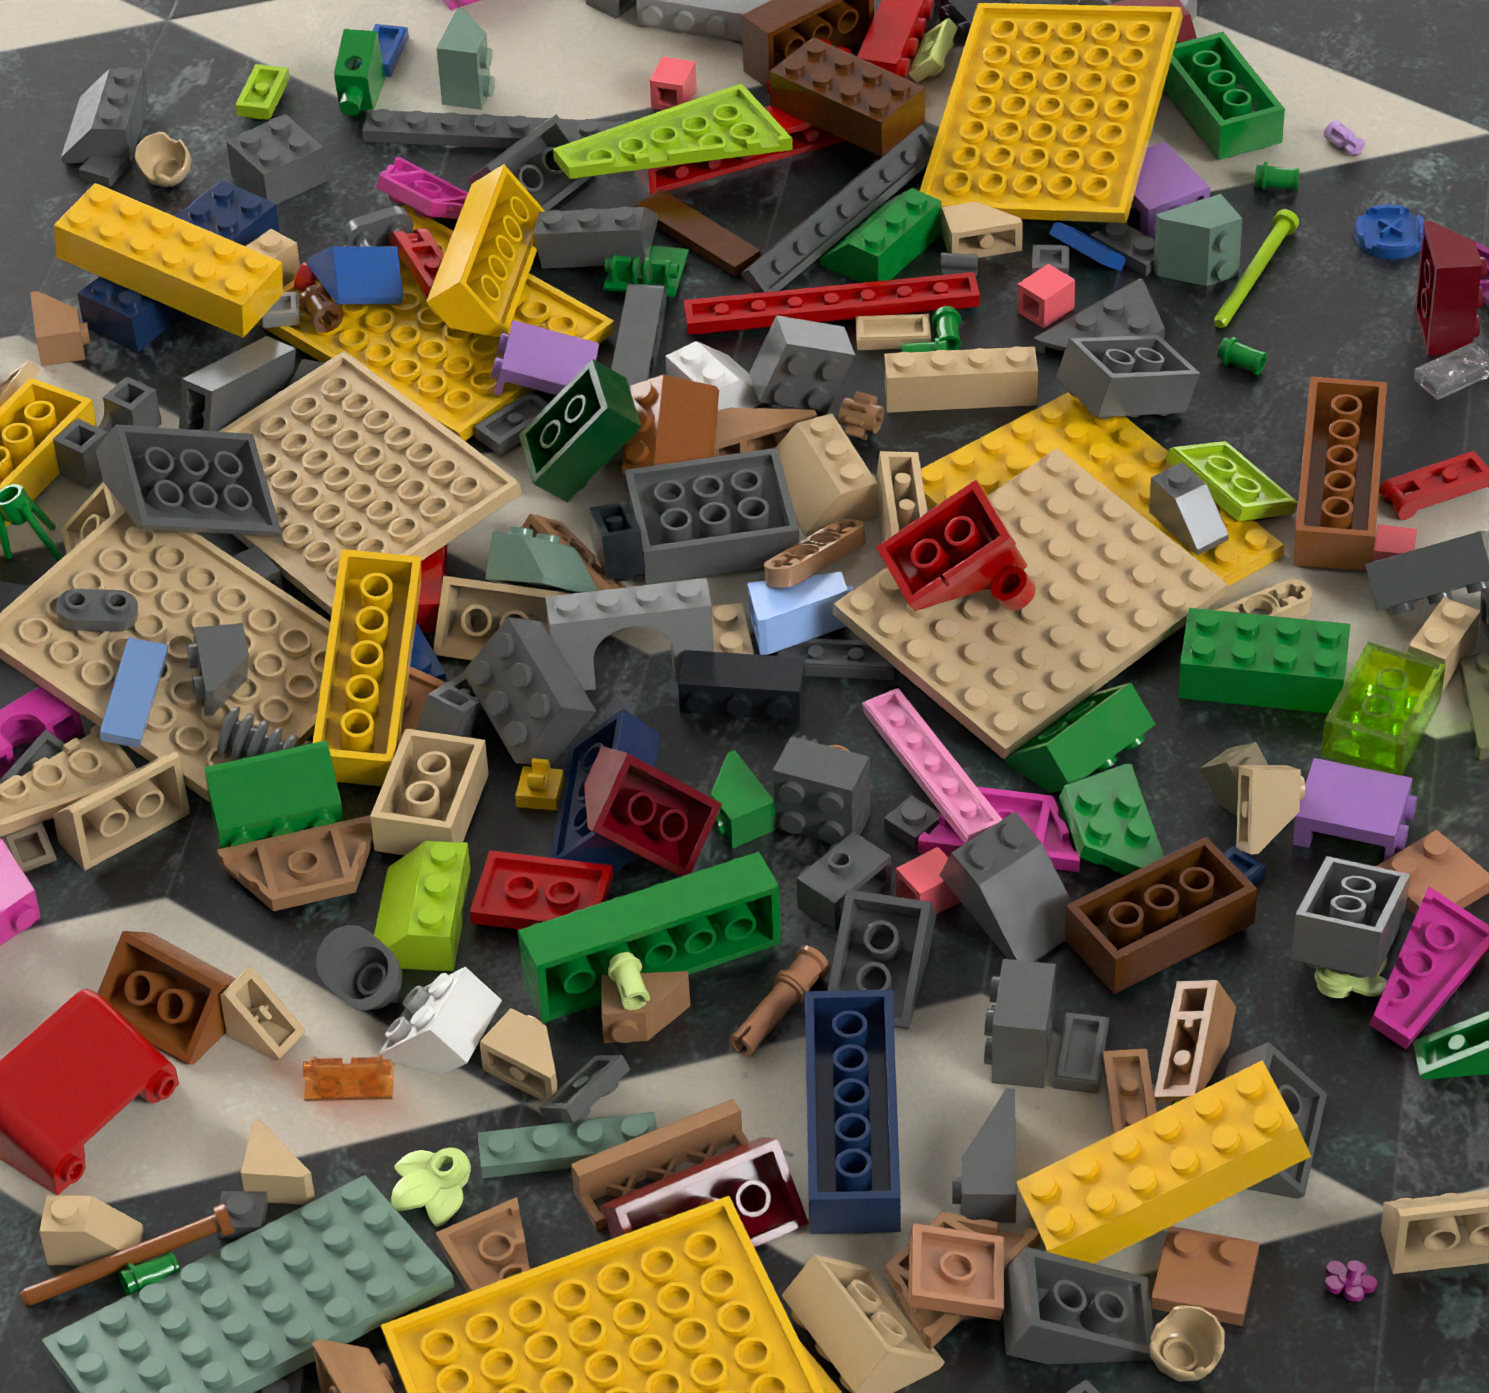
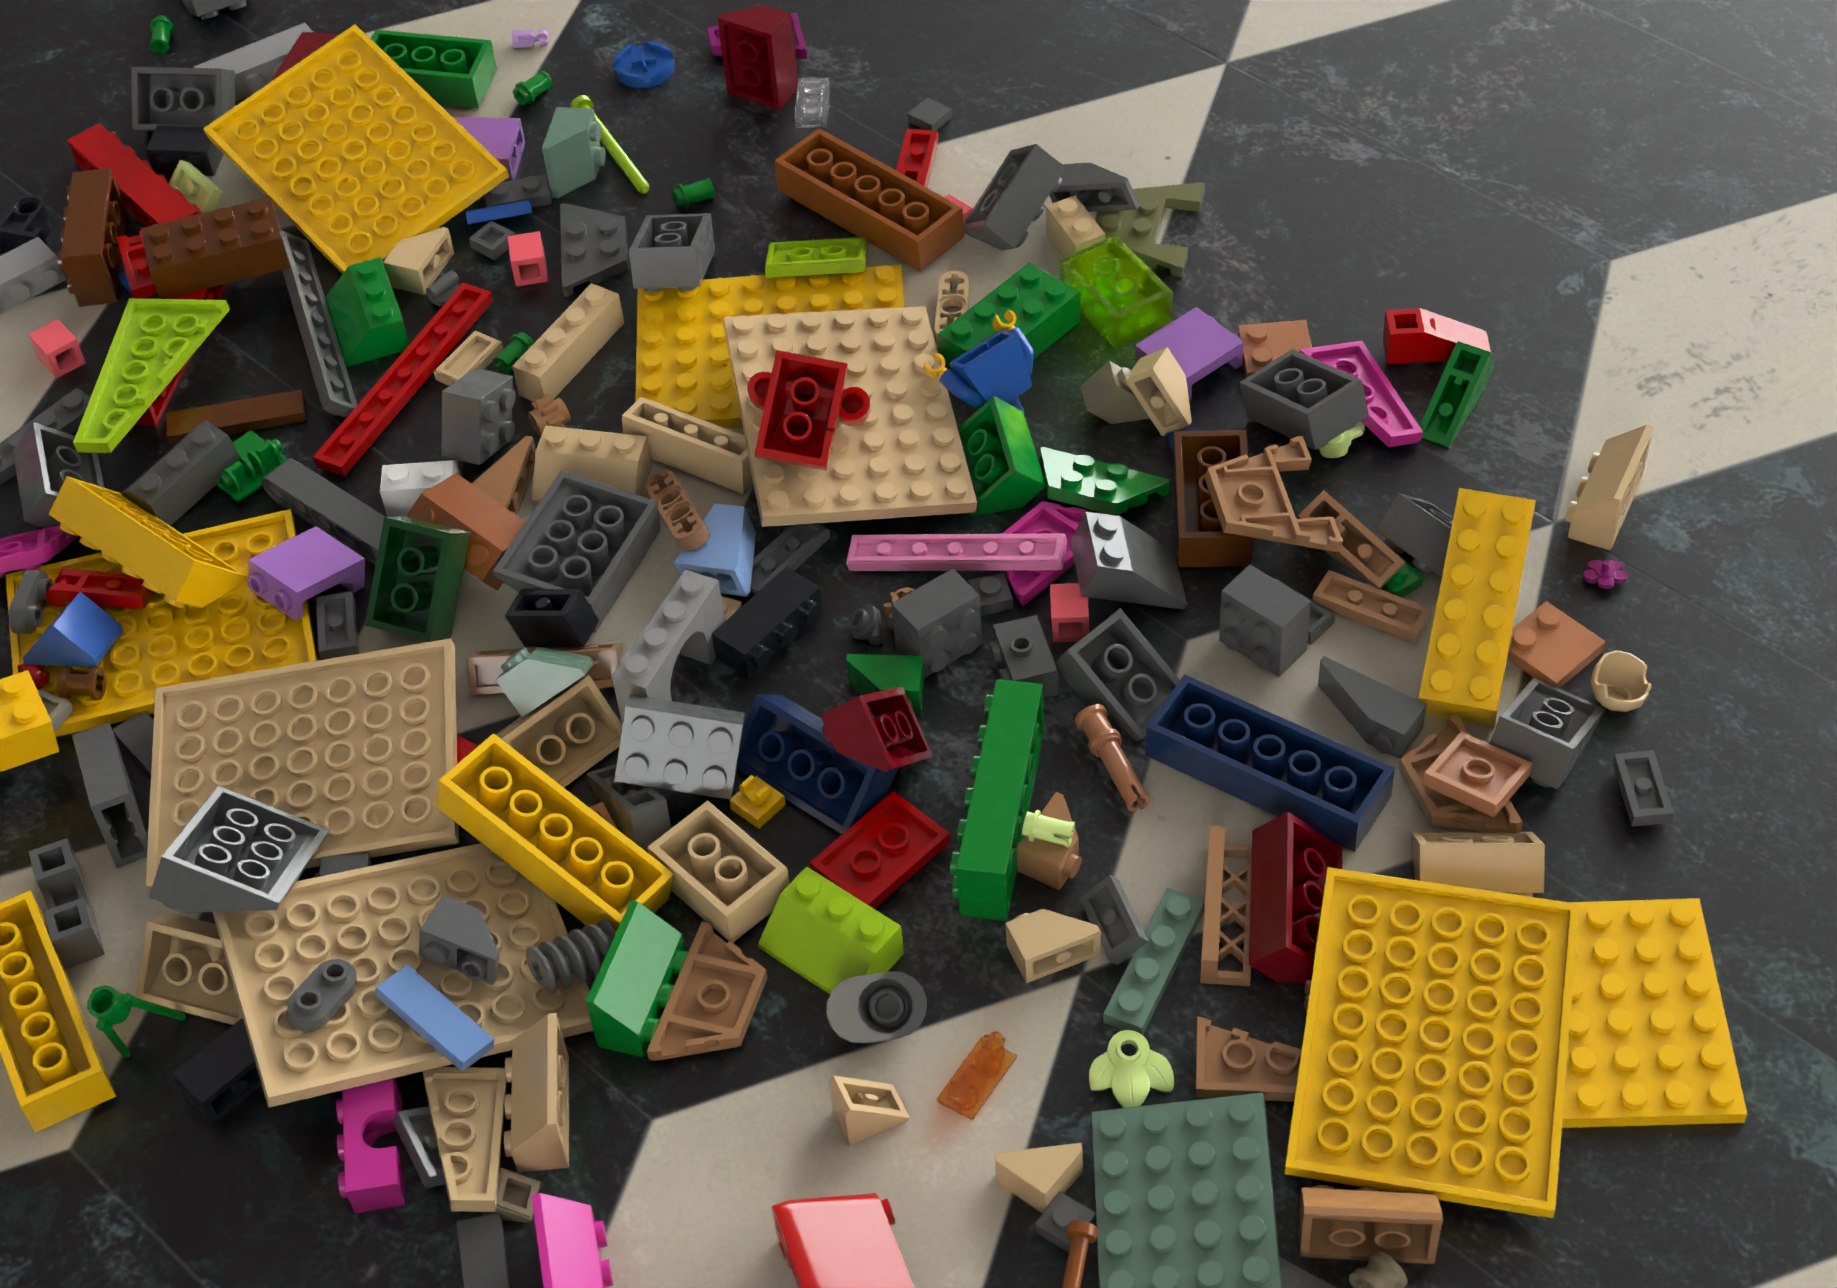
camera: 55 degrees left, 5 degrees up
(166, 994) = (785, 1159): dark orange slope -> none
(441, 1023) = (971, 983): white slope -> none
(947, 323) = (494, 325): green pin -> none
(1155, 929) = (1255, 502): none -> medium nougat wing
(1172, 669) = (994, 367): none -> blue torso
(1187, 508) = (836, 287): dark grey slope -> none

